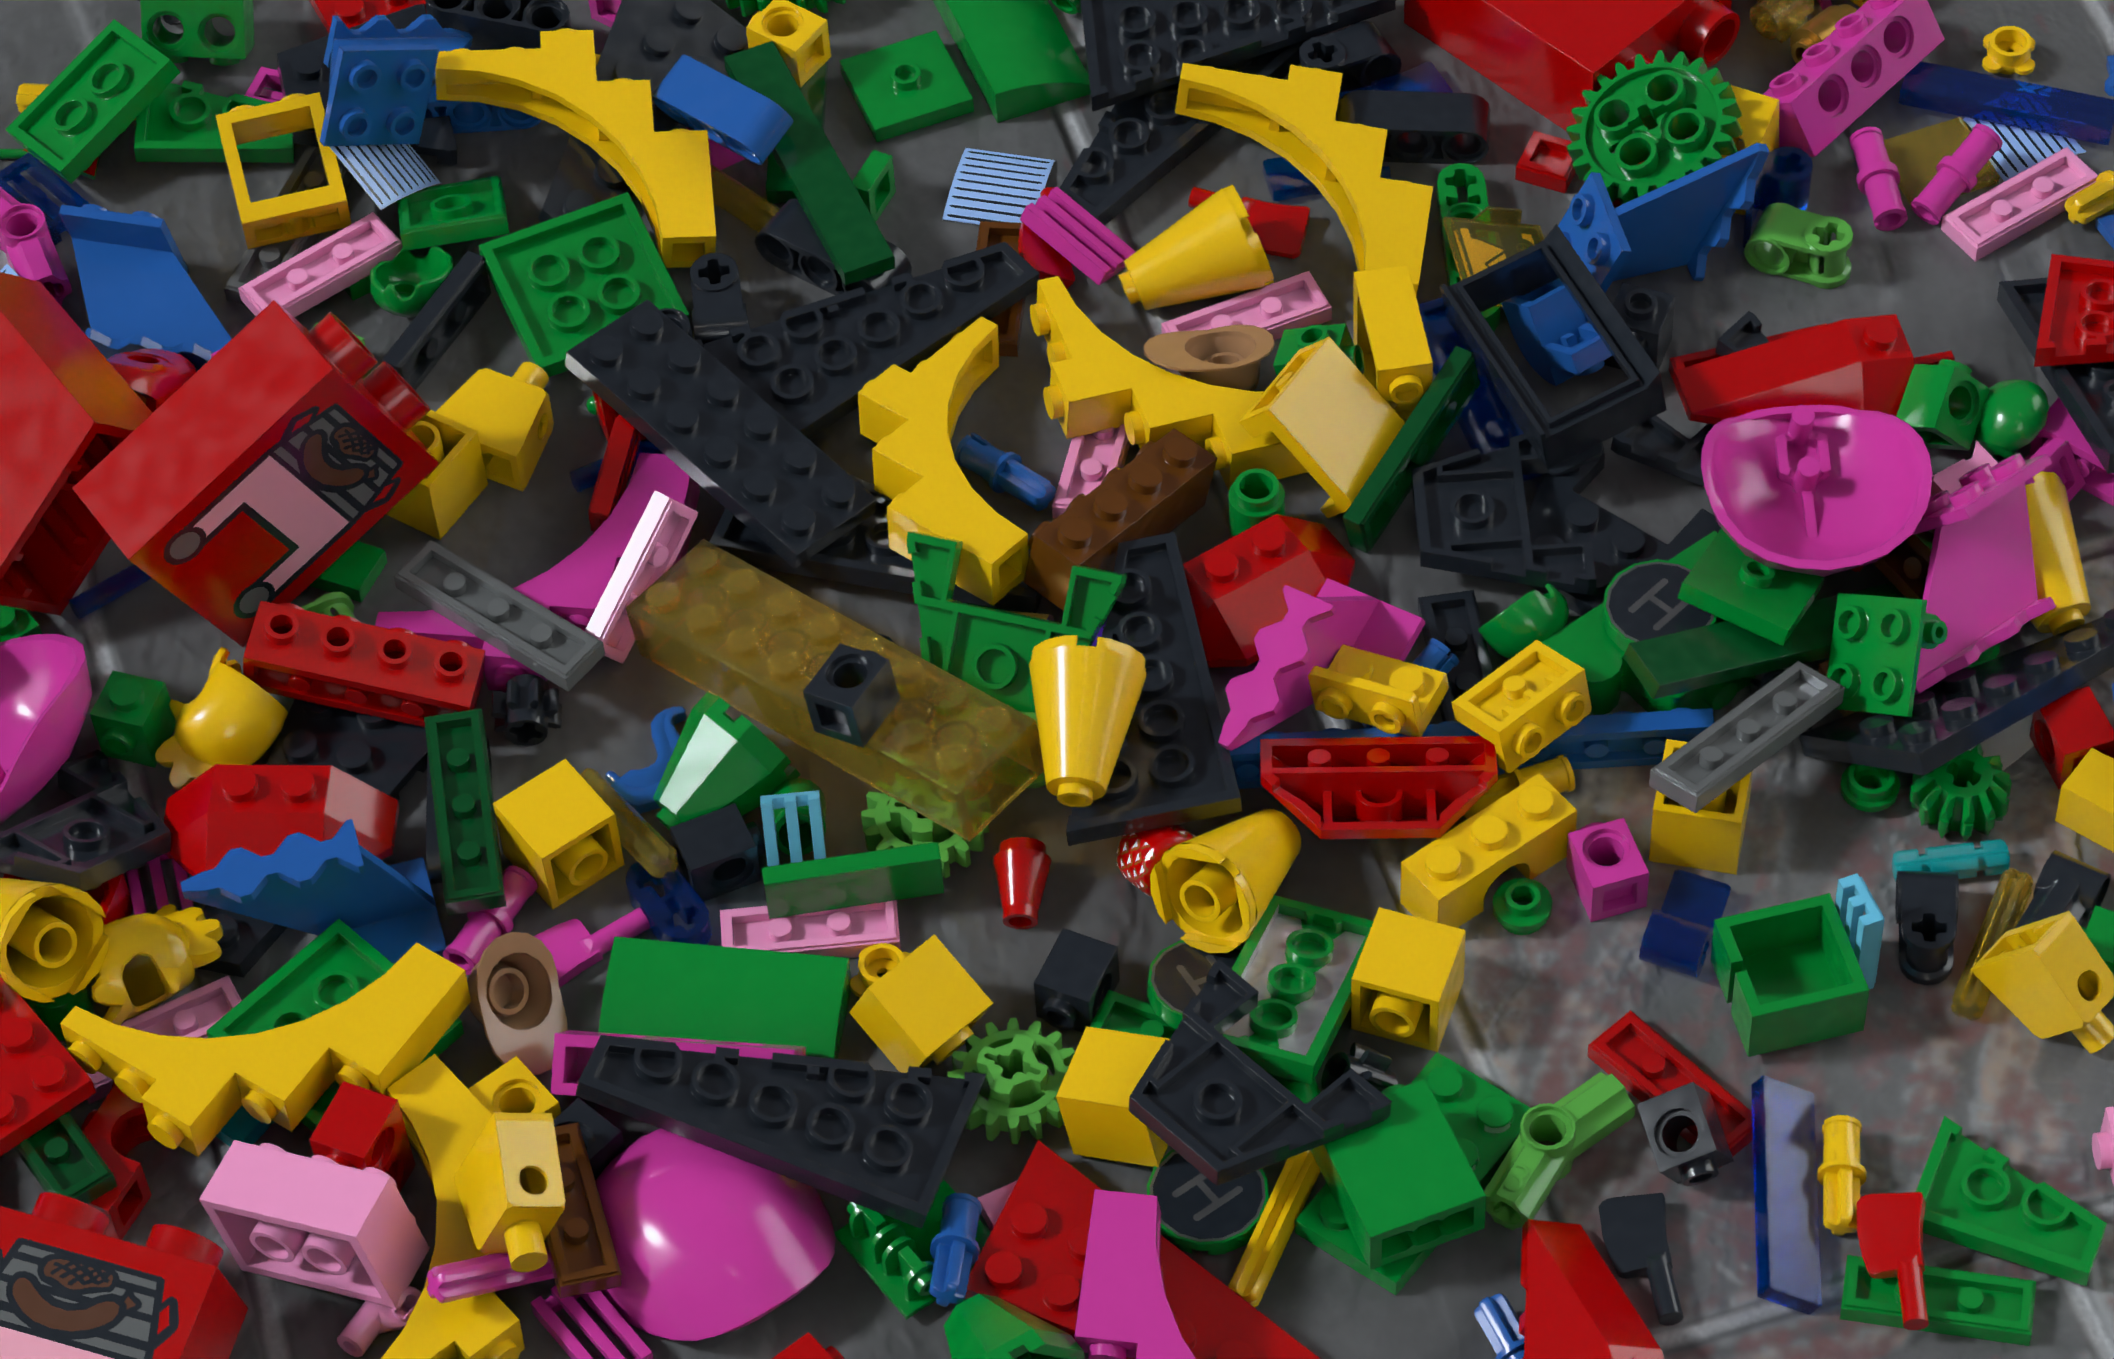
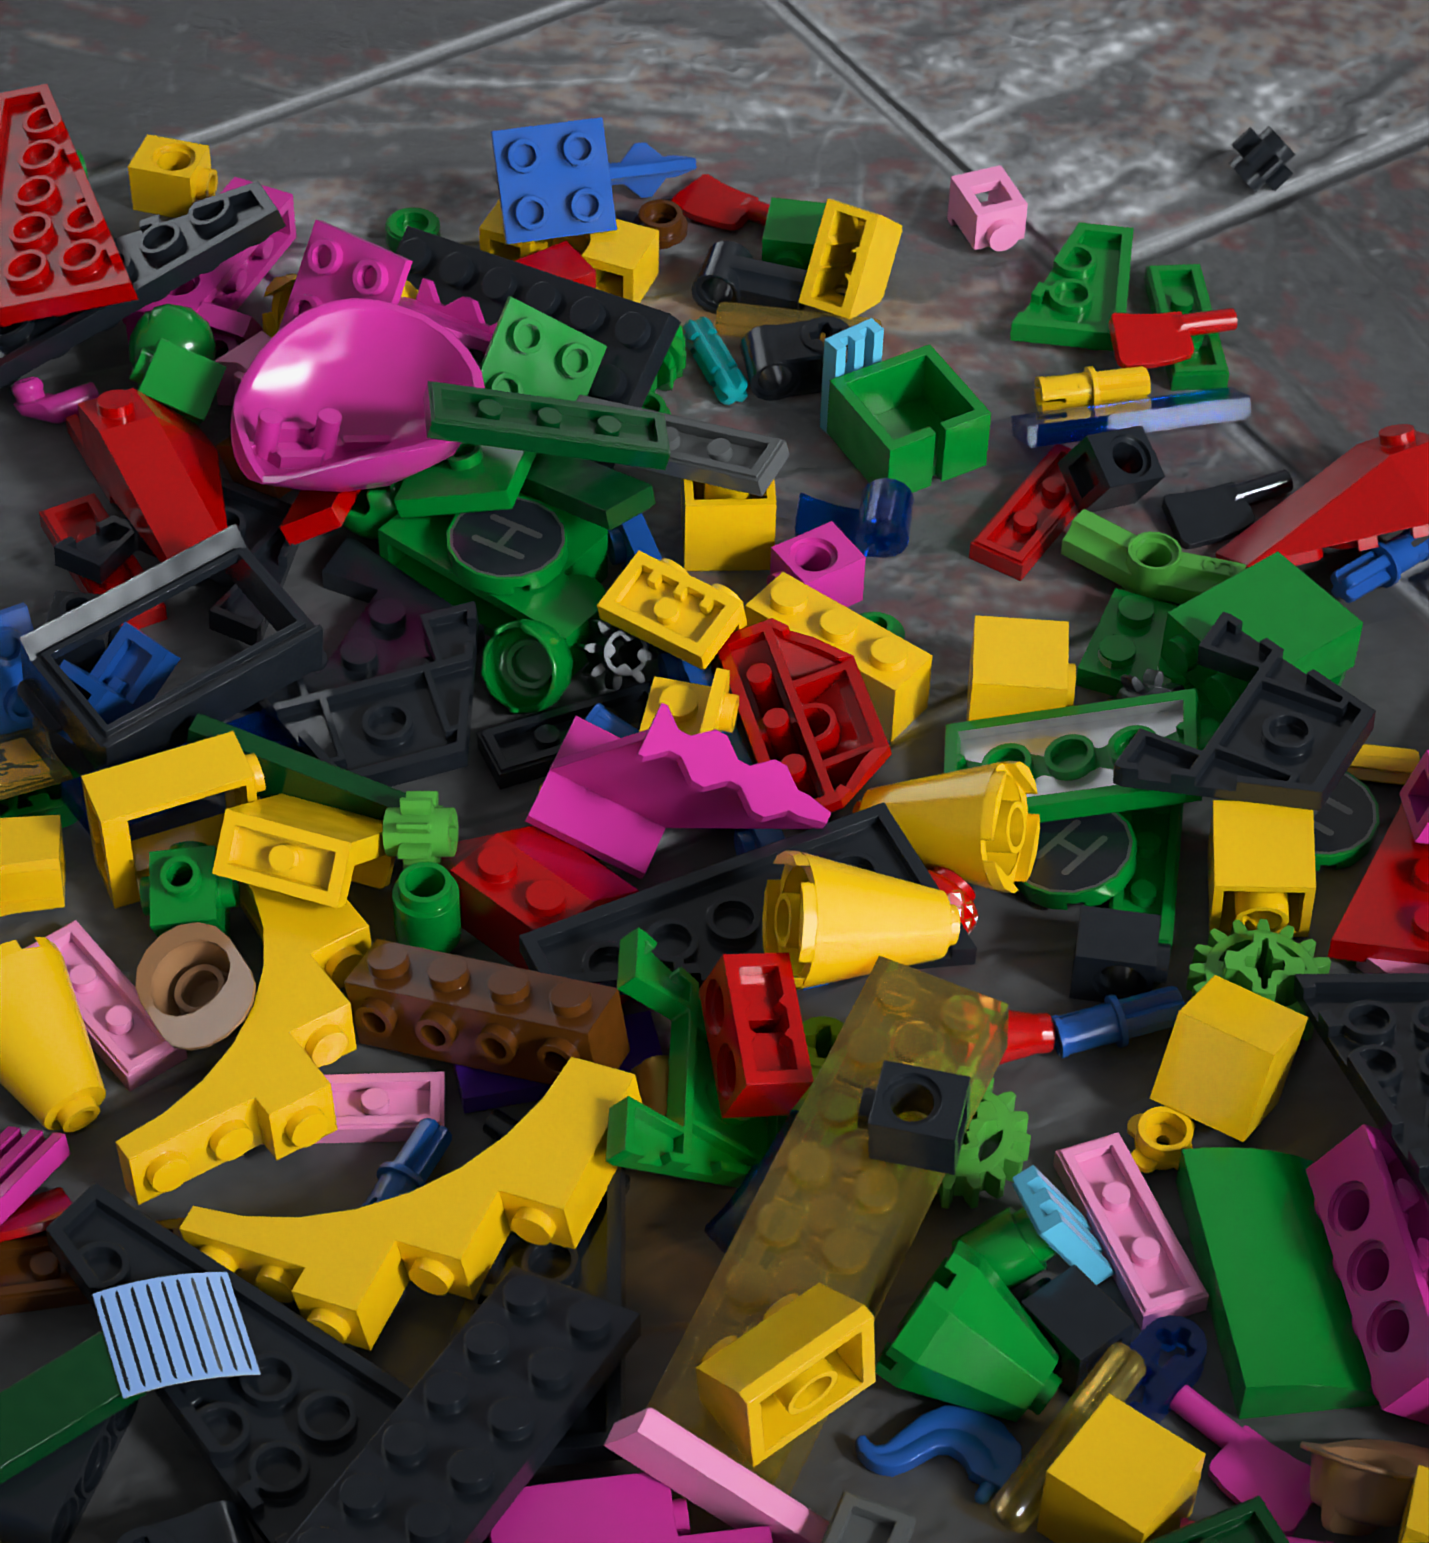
camera: 110 degrees left, 5 degrees down
(678, 585) = (788, 1370): none -> yellow slope
(853, 880) = (1082, 1166): green tile -> none
(881, 299) = (174, 1331): none -> light blue sticker
(997, 645) = (755, 1035): none -> red brick
(1012, 967) = (1116, 1020): none -> blue axle
(1317, 495) = (420, 829): none -> bright green gear
(1740, 608) = (546, 425): none -> dark green tile
(1979, 345) = (49, 407): none -> dark pink arm

